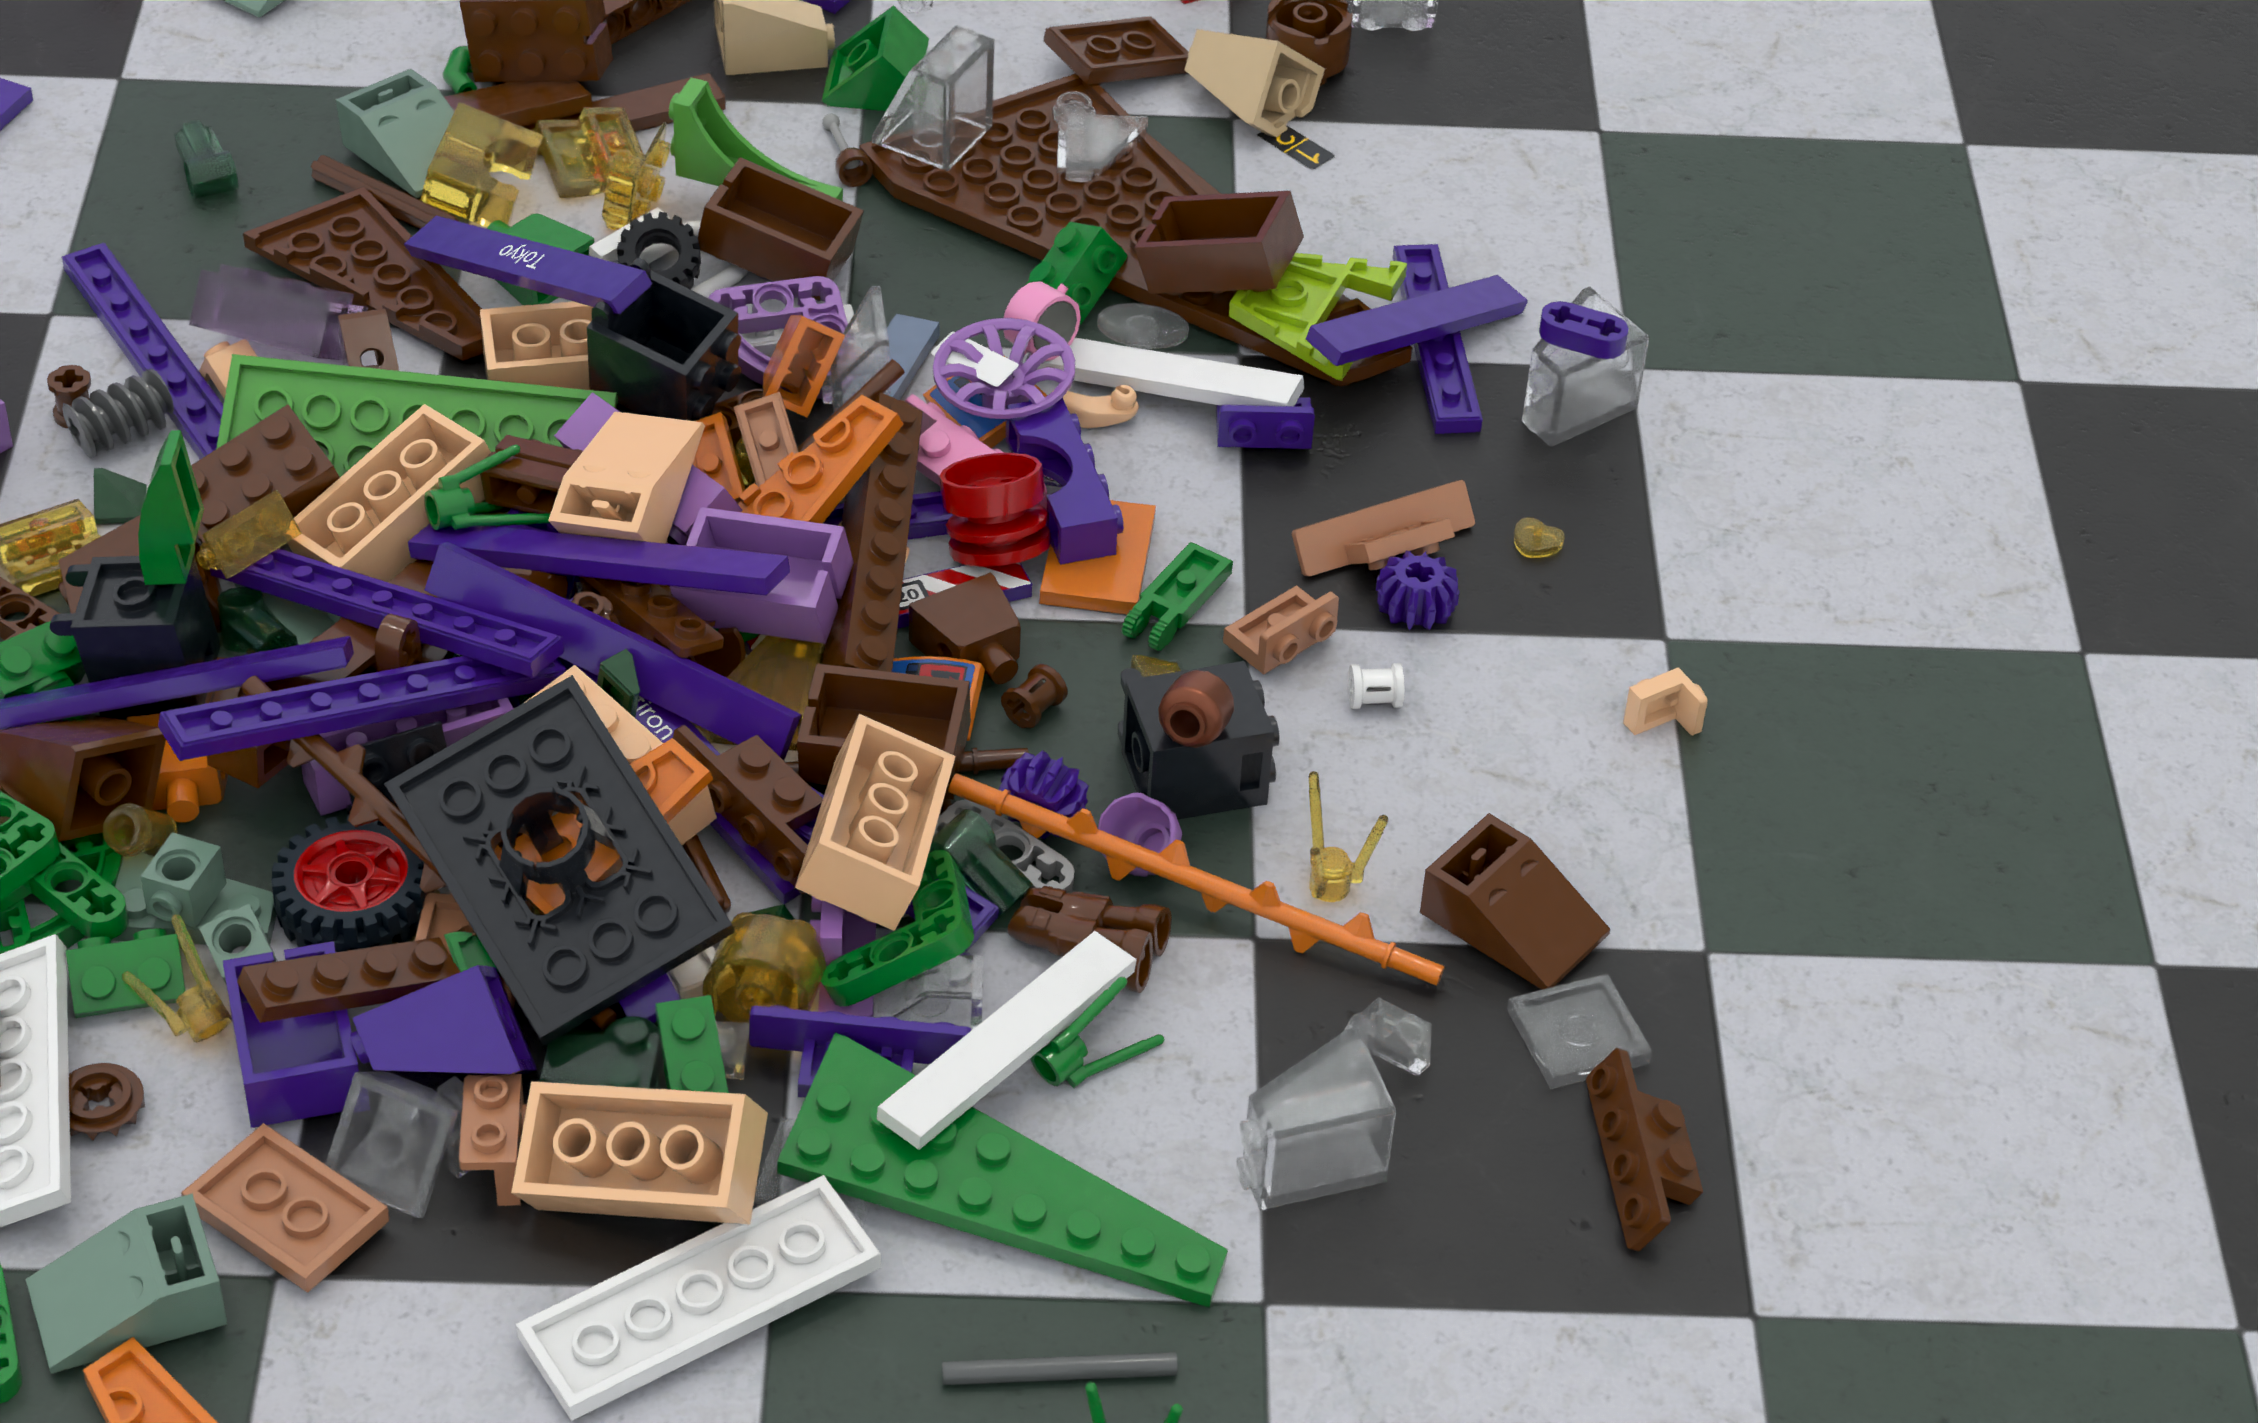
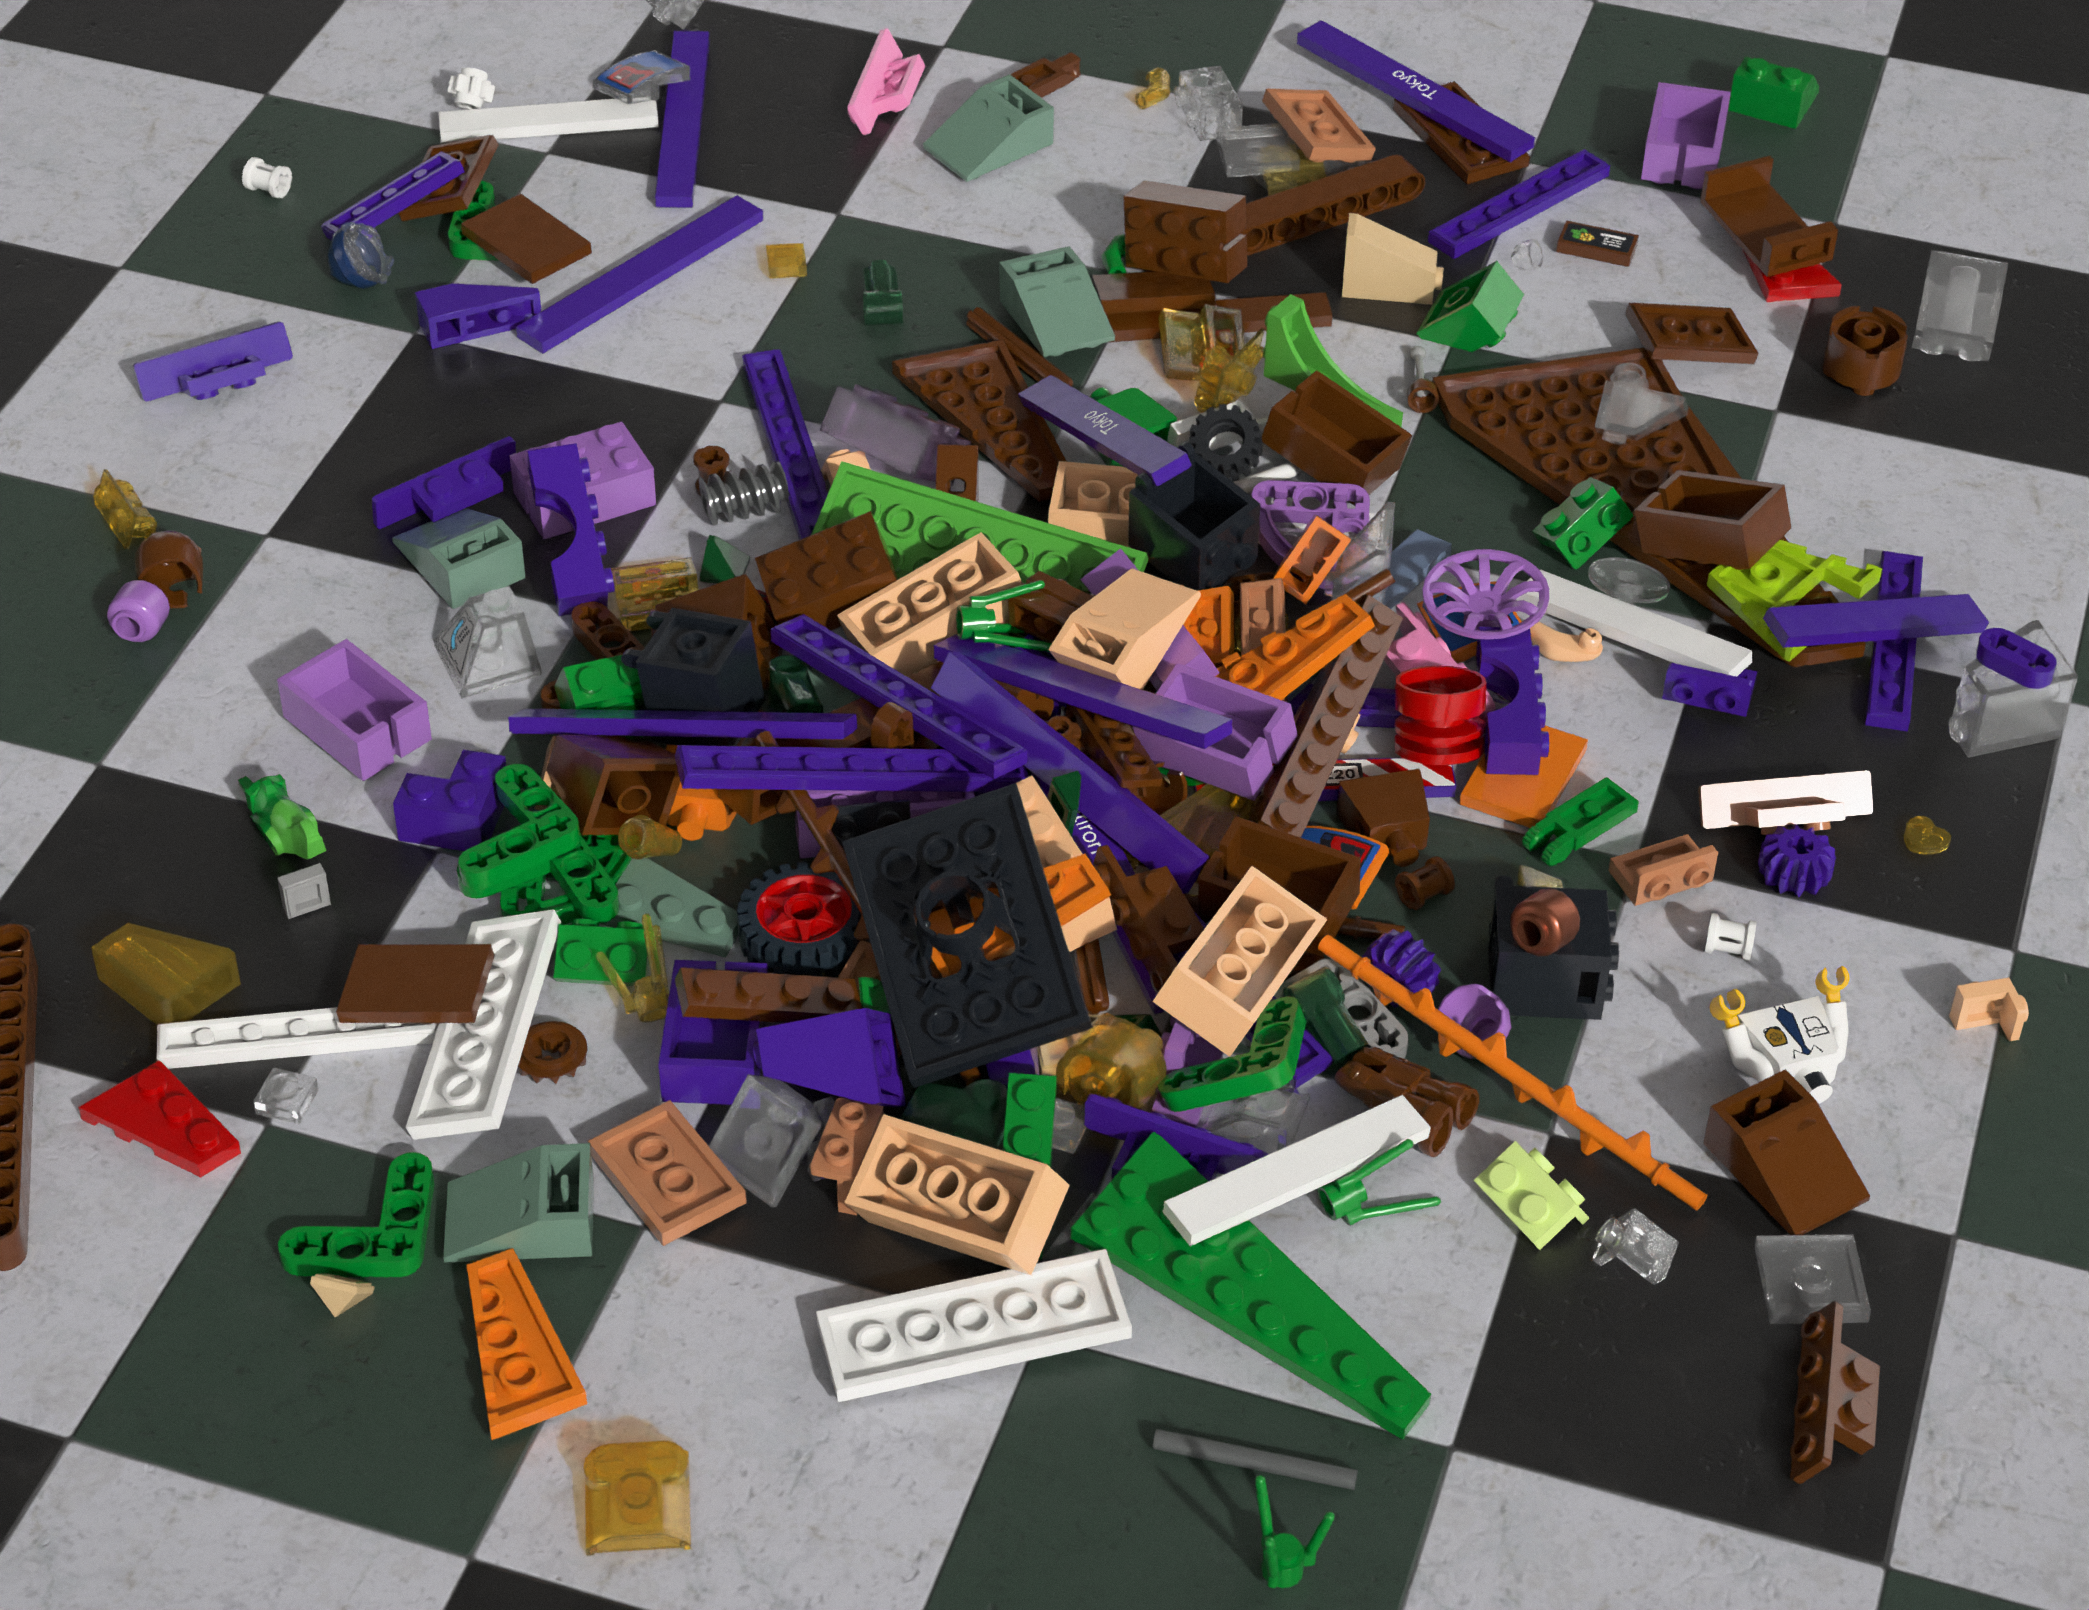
camera: 20 degrees right, 0 degrees up
(77, 141) = (786, 260): none -> clear yellow tile
(170, 516) = (732, 586): green slope -> none
(183, 879) = (668, 887): sand green brick -> none
(233, 929) = (693, 937): sand green brick -> none
(248, 536) = (806, 614): clear yellow hinge -> none
(461, 166) = (1097, 323): clear yellow piece -> none
(942, 101) = (1511, 352): clear slope -> none
(991, 368) = (1474, 593): white sticker -> none
(1047, 307) = (1543, 550): bright pink piece -> none
(1255, 78) = (1804, 380): tan slope -> none
(1260, 1010) = (1529, 1196): none -> yellowish green bracket
(1299, 148) = (1826, 445): black sticker -> none
(1318, 1127) = (1539, 1307): clear slope -> none
(1330, 866) = (1634, 1088): clear yellow plant -> none
(1474, 778) = (1795, 1036): none -> white torso

